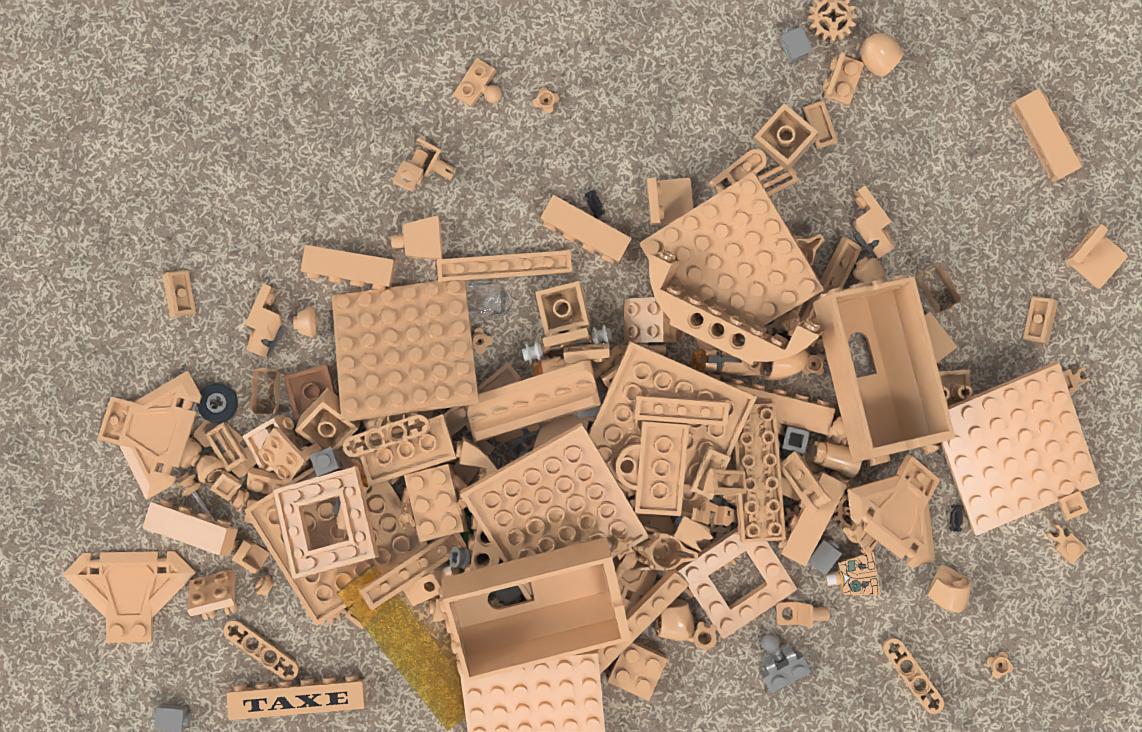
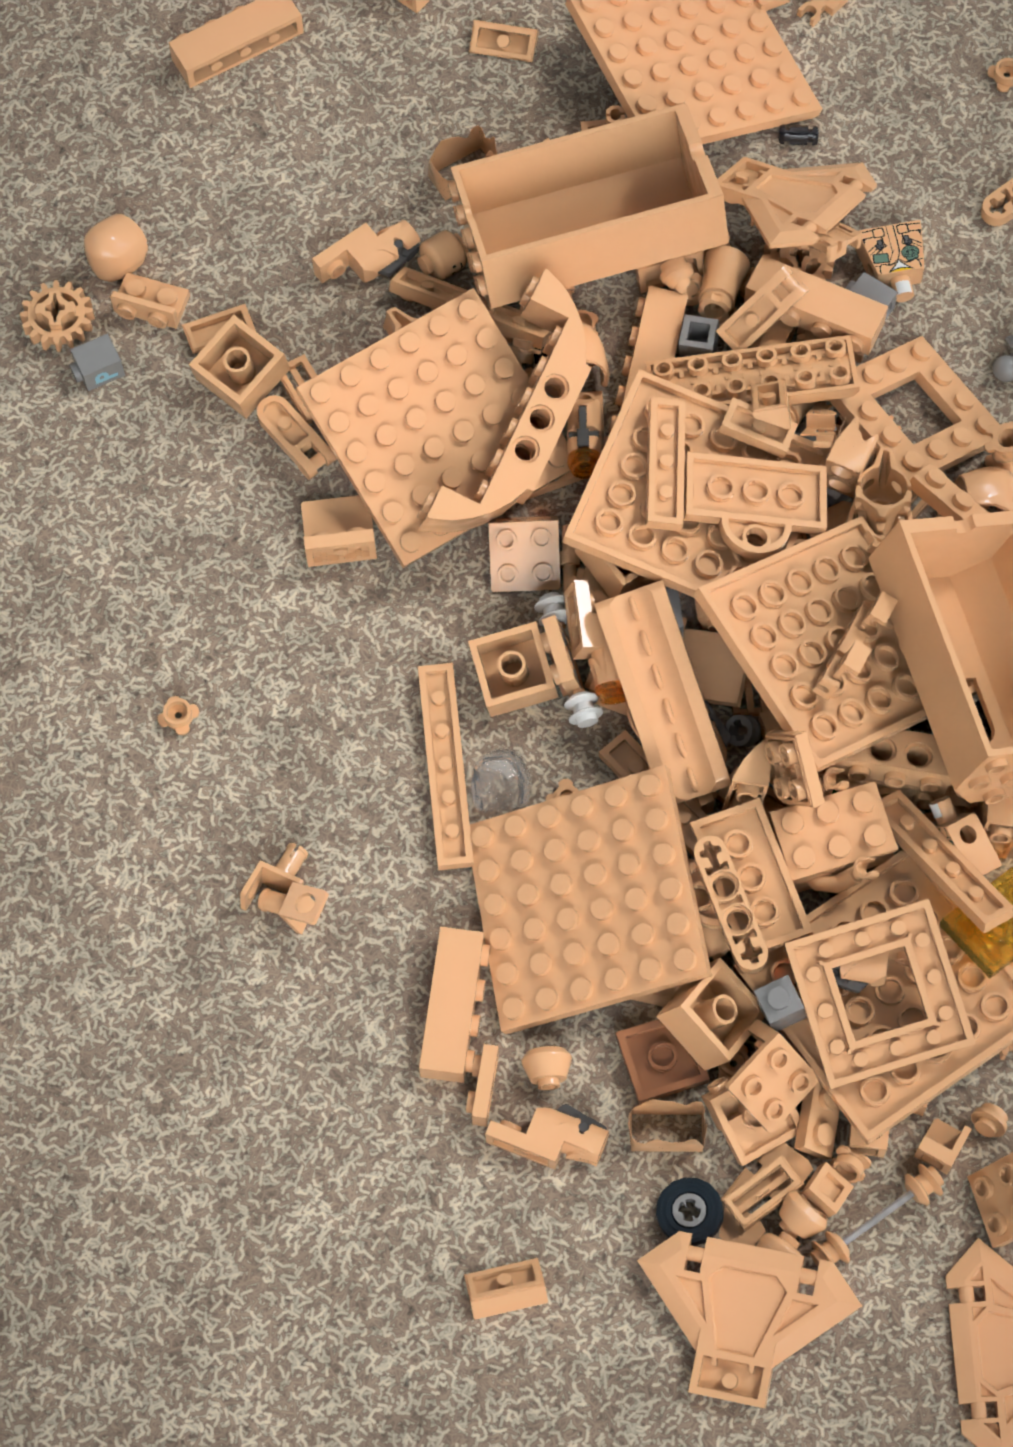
camera: 95 degrees left, 20 degrees down
(190, 528) = (904, 1236): light nougat brick -> none
(288, 281) = (485, 1069): none -> light nougat plate
(420, 239) = (405, 891): light nougat torso -> none
(459, 557) = (919, 783): light grey bush -> none
(464, 479) = (794, 768): none -> light nougat tile
(476, 83) = (150, 821): light nougat plate -> none
(528, 515) = (850, 651): none -> light nougat piece
(585, 229) = (384, 646): light nougat brick -> none
(594, 203) = (343, 637): black piece -> none
(802, 614) = (958, 327): light nougat bracket -> none
(950, 589) = (903, 135): light nougat piece -> none

